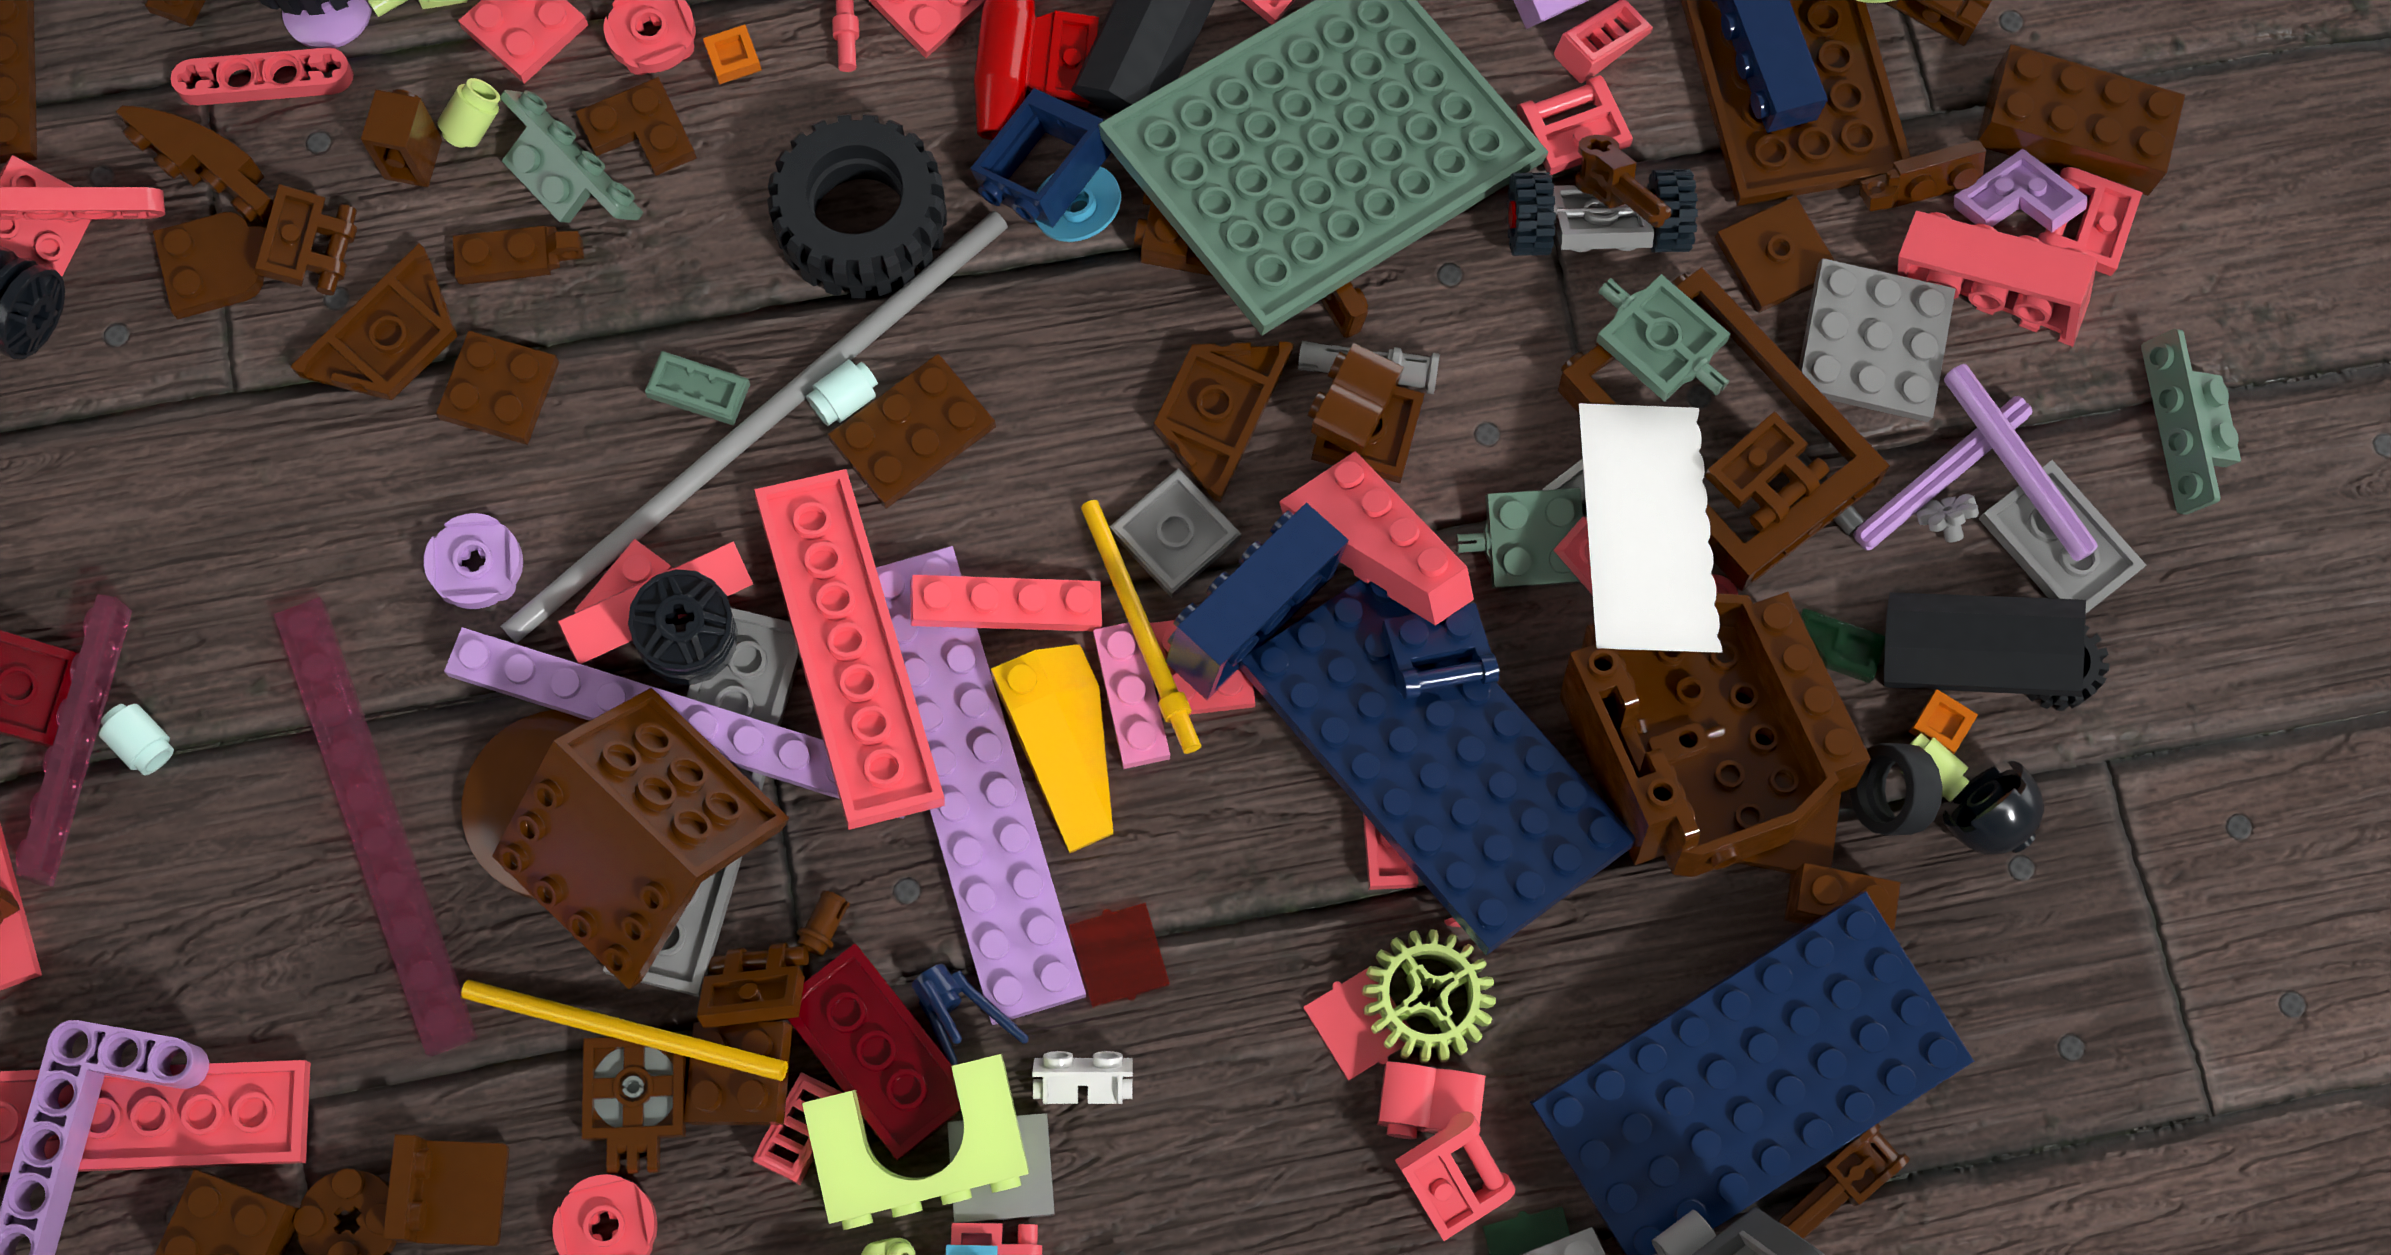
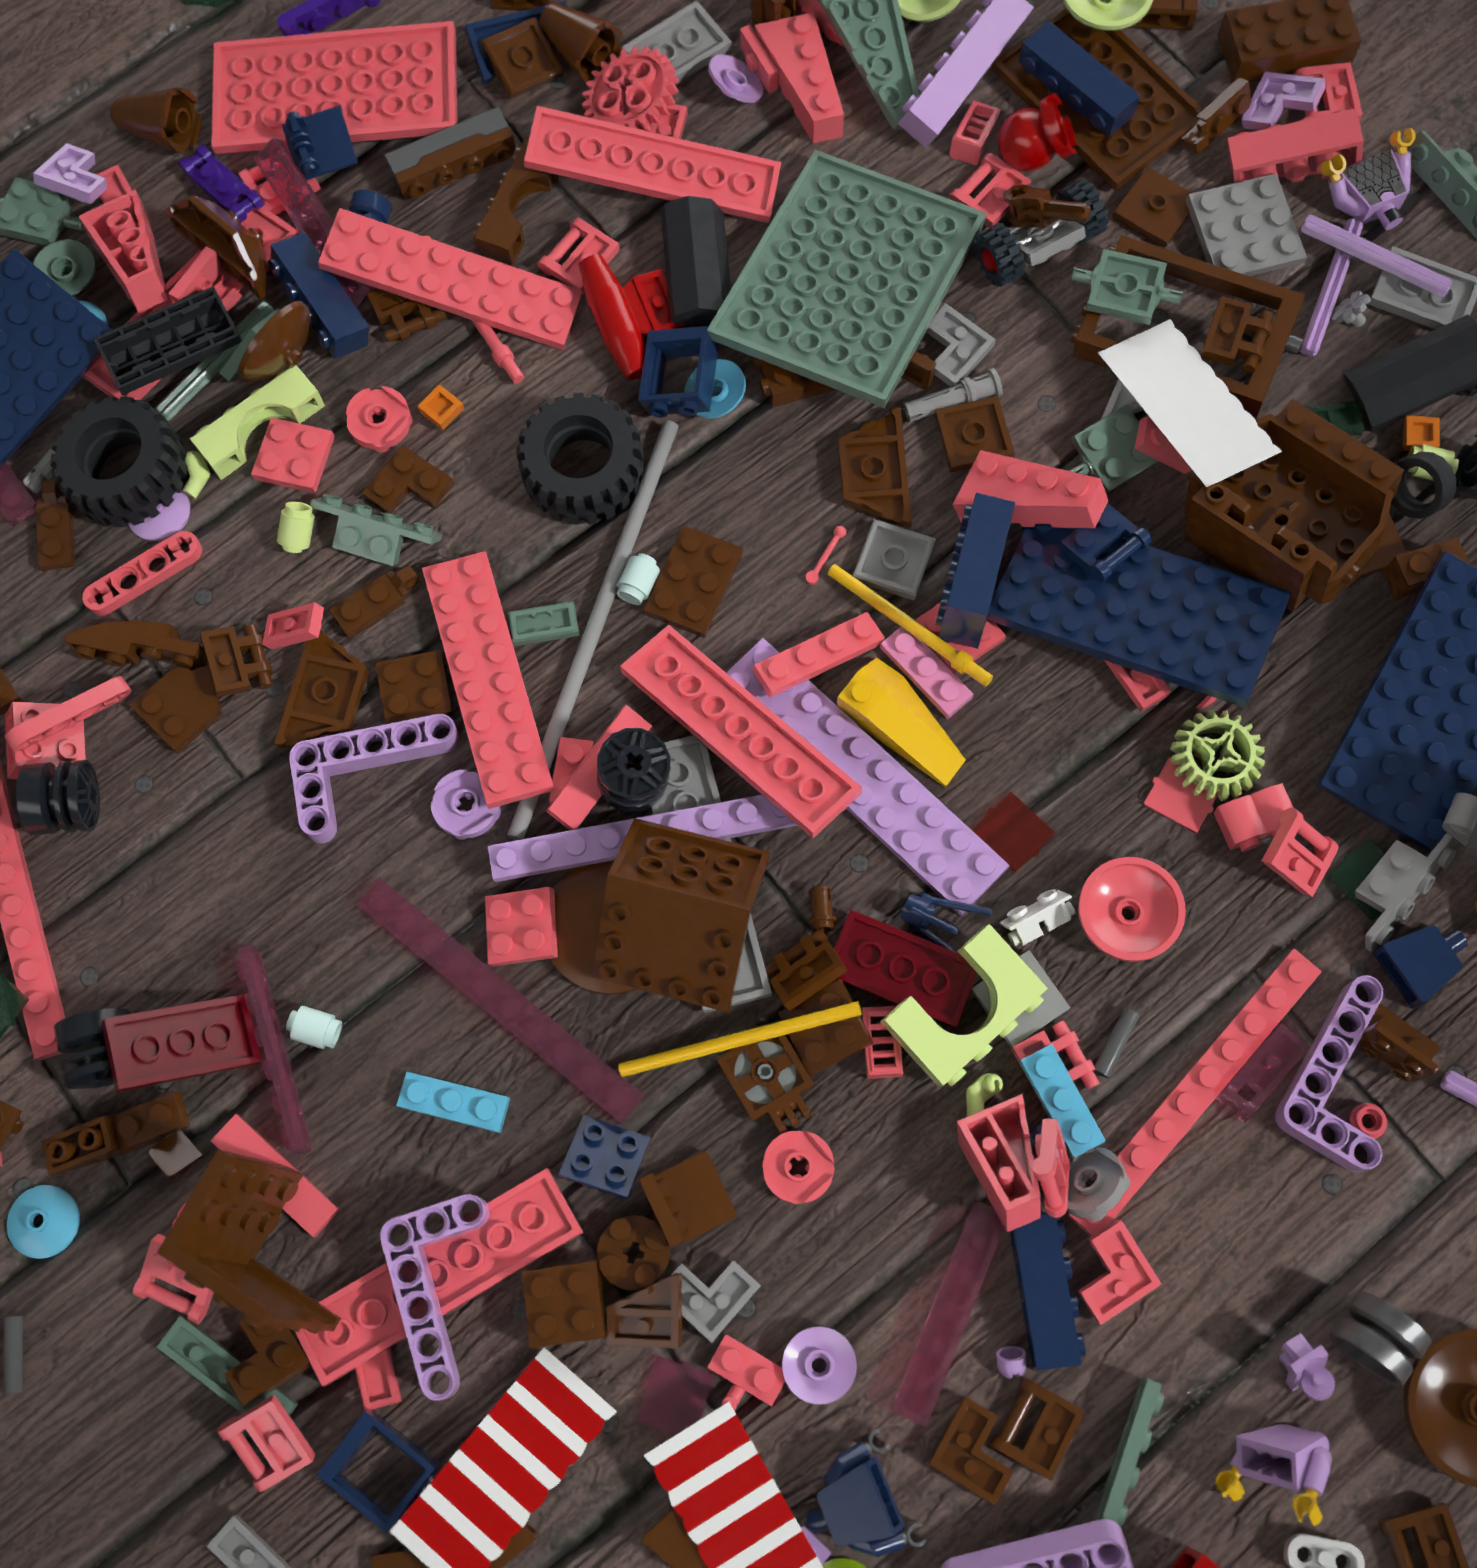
camera: 20 degrees left, 0 degrees up
(247, 919) = (453, 1102): none -> medium azure plate
(379, 436) = (359, 759): none -> lavender beam
(381, 1085) = (604, 1157): none -> dark blue hinge
(395, 234) = (293, 626): none -> coral plate
(401, 137) = (262, 562): reddish brown brick -> none
(449, 748) = (521, 926): none -> coral plate
(587, 423) = (487, 680): none -> coral plate
(1061, 501) = (812, 576): none -> coral hinge
(1204, 1095) = (1143, 890): none -> coral dish
(1355, 399) = (962, 418): reddish brown brick -> none
(1425, 303) = (964, 342): none -> light grey plate
(1670, 85) = (1034, 136): none -> red tile
(2074, 369) = (1375, 185): none -> torso

